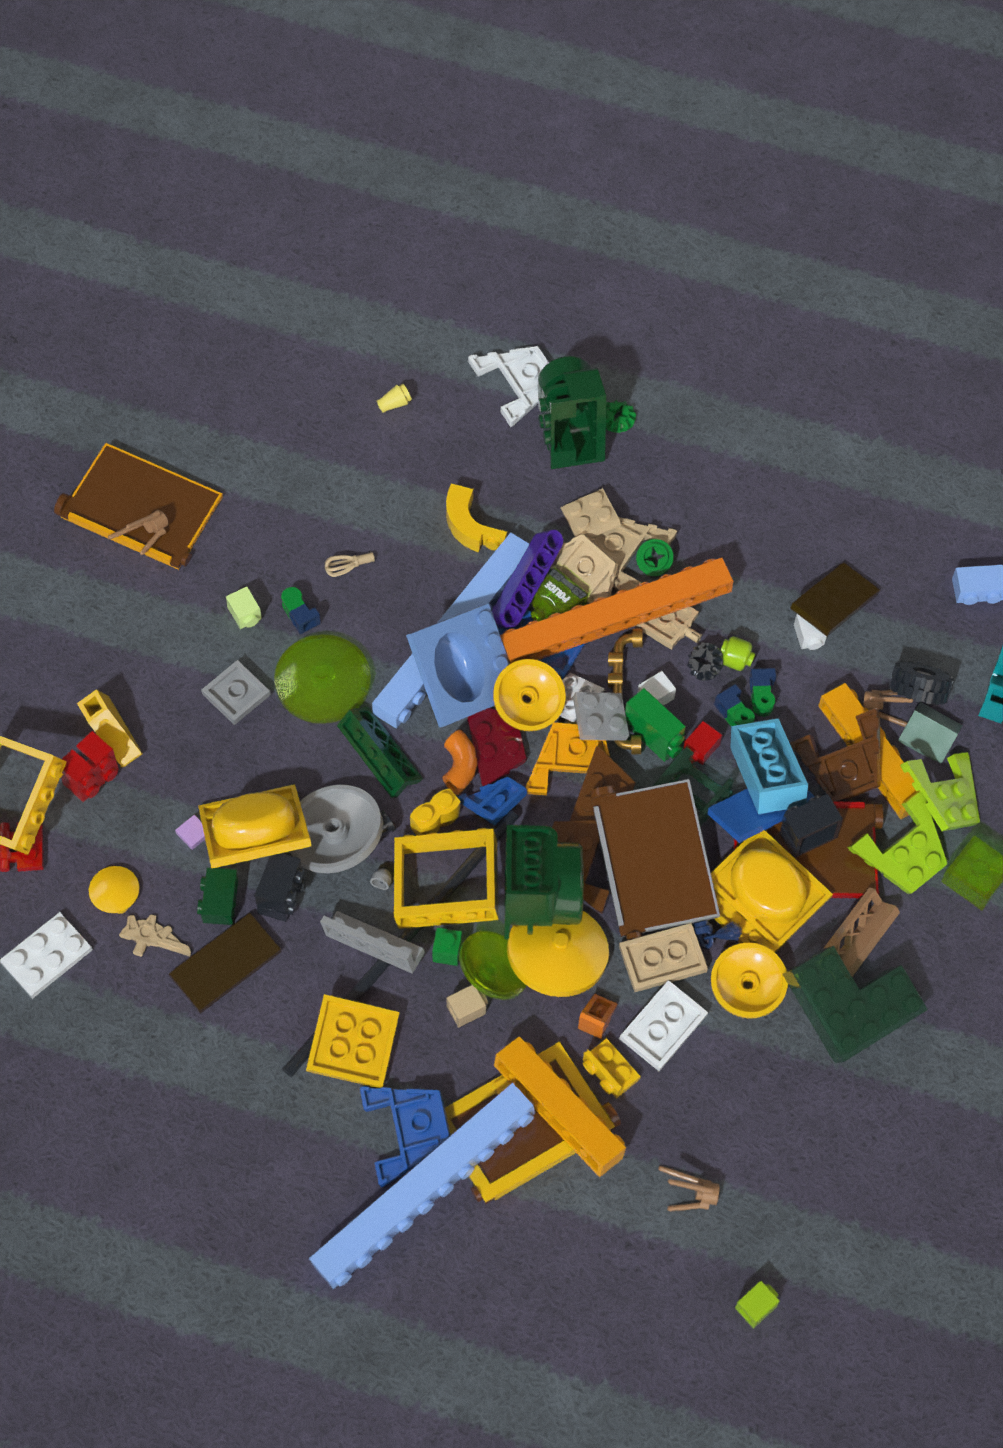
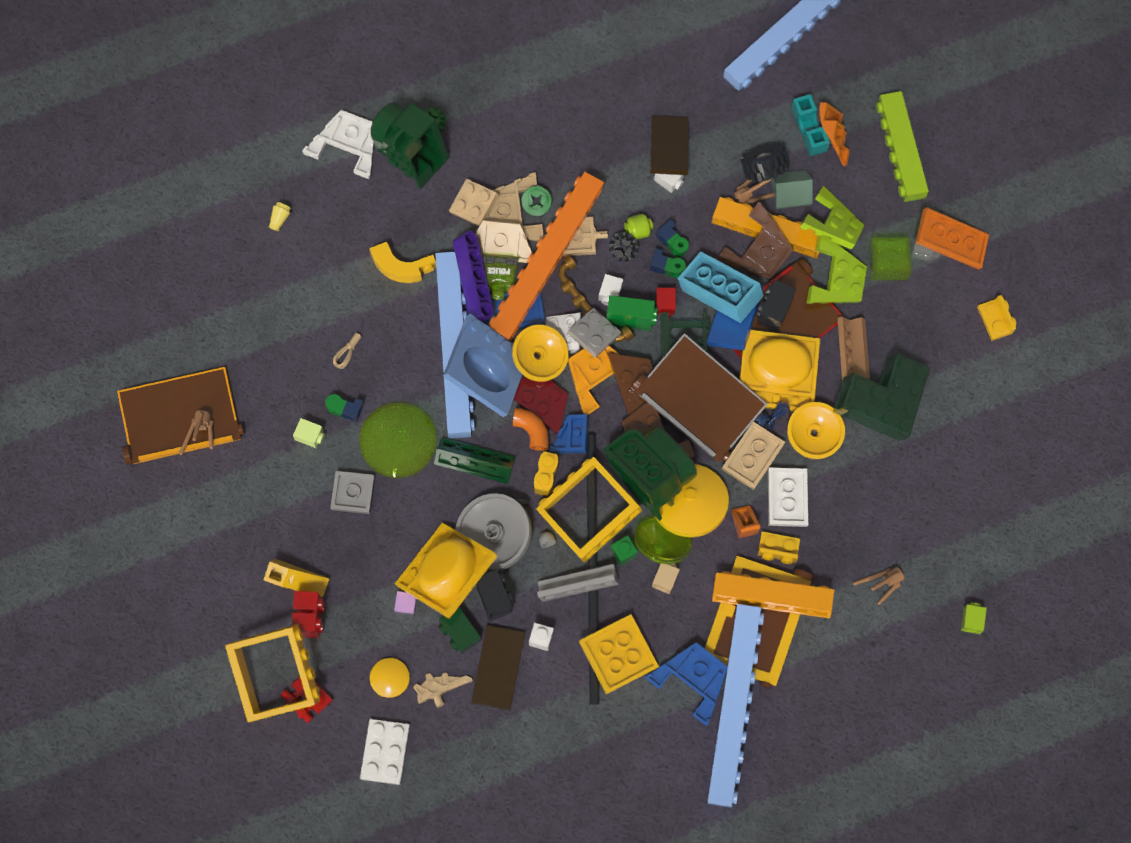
camera: 40 degrees left, 10 degrees up
(291, 964) = (541, 636): none -> white brick

